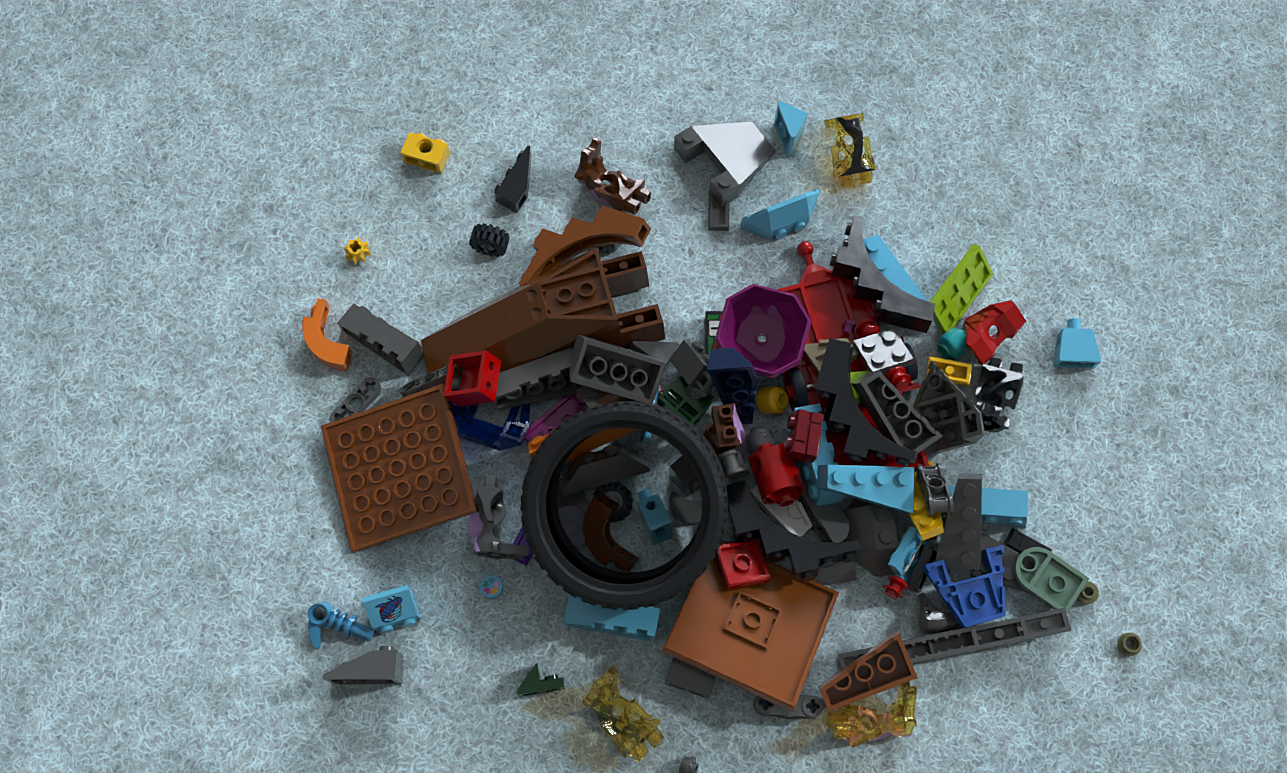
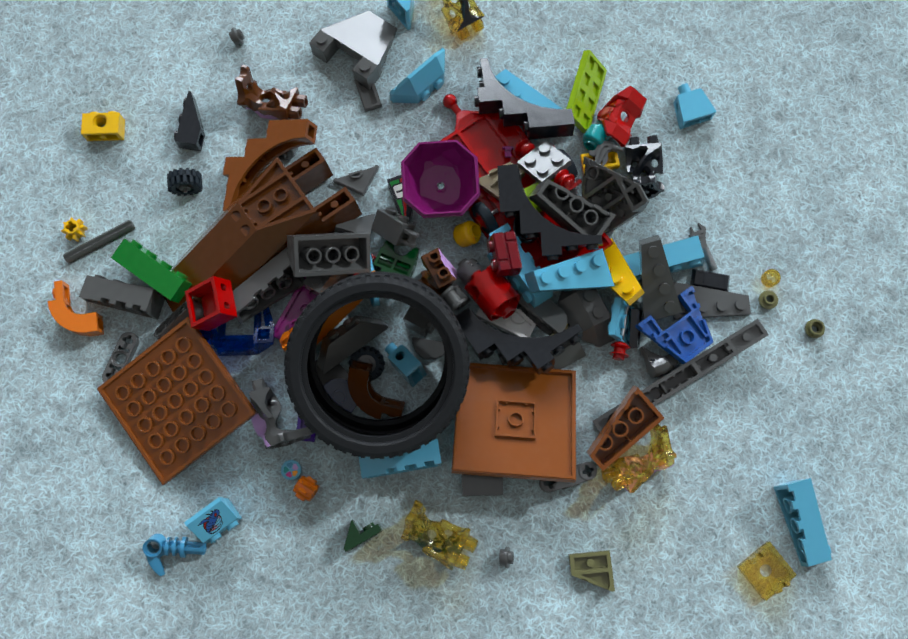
camera: 20 degrees left, 5 degrees up
(374, 667) = (217, 574): dark grey slope -> none
(377, 272) = (99, 241): none -> dark grey axle
(423, 322) = (151, 269): none -> green wedge
(500, 611) = (306, 488): none -> orange gear
(599, 103) = (236, 36): none -> dark grey plate
(674, 302) = (358, 181): none -> dark grey tile
(734, 381) = (431, 228): dark blue wedge -> none
(742, 564) = (491, 377): red plate -> none
(934, 489) = (624, 260): dark grey piece -> none
(954, 361) = (602, 151): none -> dark grey piece
(1033, 500) = (707, 254): none -> dark grey piece
(1050, 578) = (737, 299): sand green tile -> none
(1094, 573) = (768, 283): none -> clear yellow bush

